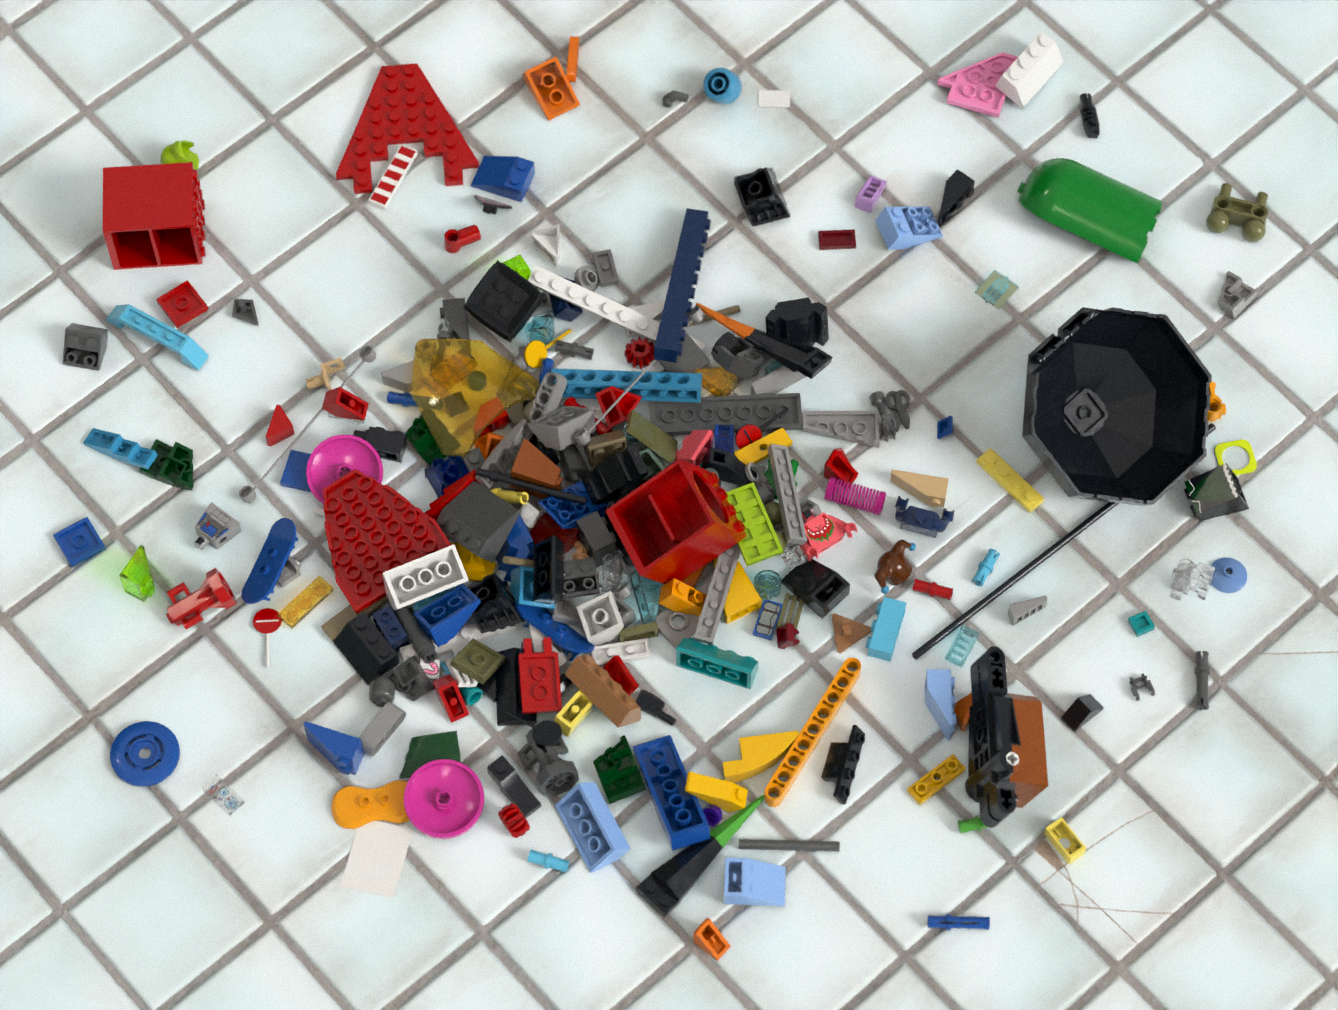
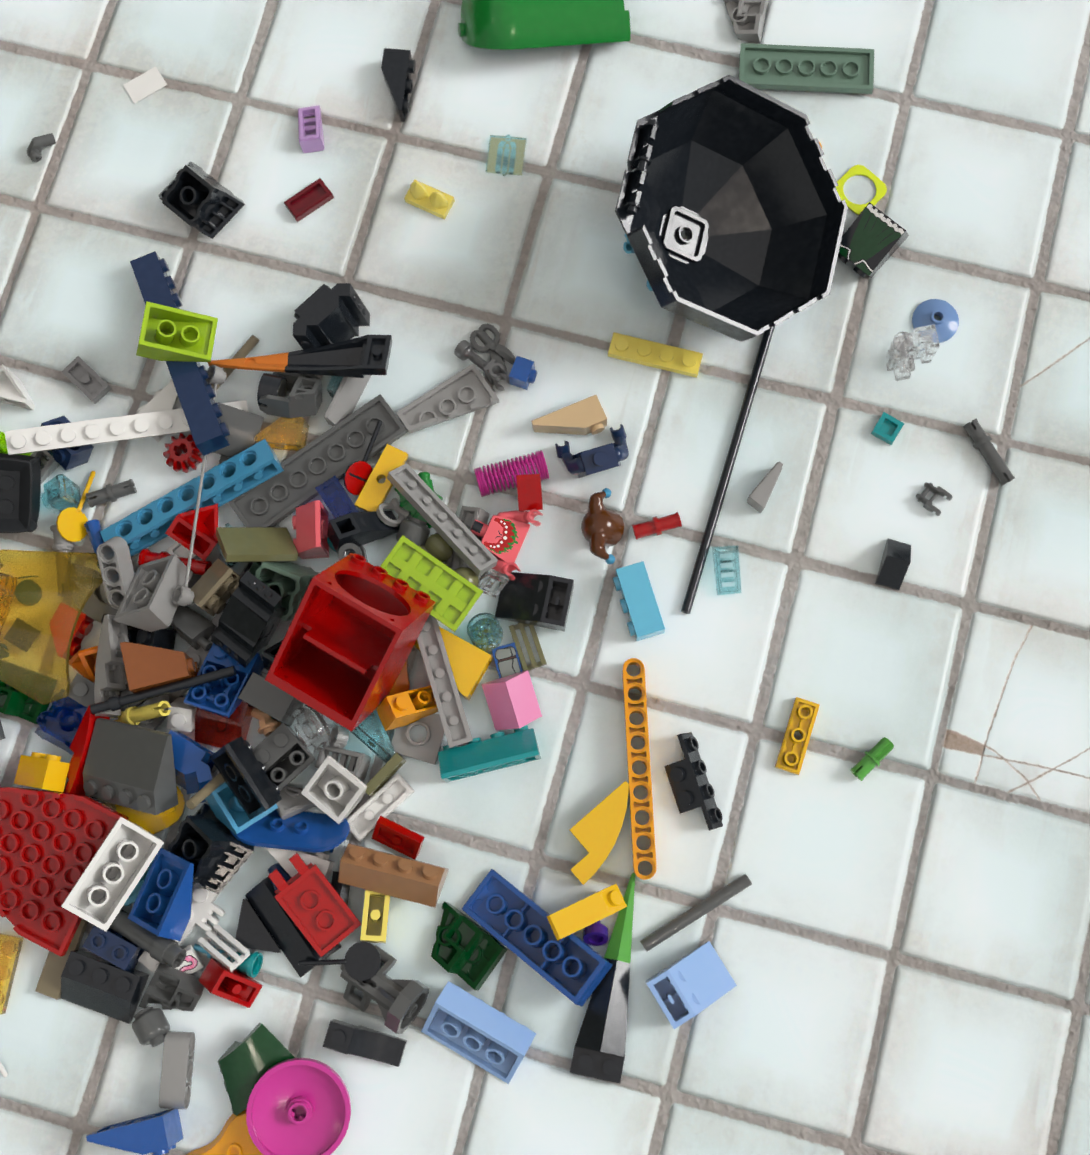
camera: 25 degrees left, 15 degrees up
(417, 492) = (42, 772): none -> yellow brick
(477, 661) = (233, 924): olive plate -> none
(514, 820) = (391, 1086): red gear -> none
(548, 861) = (456, 1104): medium azure pin -> none
(587, 278) = (74, 405): light grey plate -> none
(653, 705) = (452, 845): black piece -> none
(687, 271) = (176, 334): none -> lime slope
(711, 939) = (688, 1080): orange slope -> none
(722, 85) = (81, 102): dark azure head -> none
(756, 638) = (512, 701): none -> bright pink slope
(786, 635) = (542, 677): dark red tile -> none
(839, 467) = (475, 451): red slope -> none
(848, 632) = (599, 628): medium nougat piece -> none
(859, 511) = (529, 492): none -> red slope
(907, 226) = (372, 141): light blue slope -> none
(907, 436) = (522, 372): none -> blue plate
(921, 287) = (429, 199): none -> light yellow tile
(940, 699) = (747, 647): light blue slope -> none
(945, 427) = (553, 338): blue slope -> none
(962, 711) = (776, 639): orange slope -> none
(983, 922) = (918, 889): blue pin -> none
(985, 567) = (693, 466): medium azure pin -> none
(1004, 742) = (852, 661): black piece -> none
(1060, 830) = (986, 725): light yellow piece -> none
(1253, 354) = (807, 68): none -> sand green plate

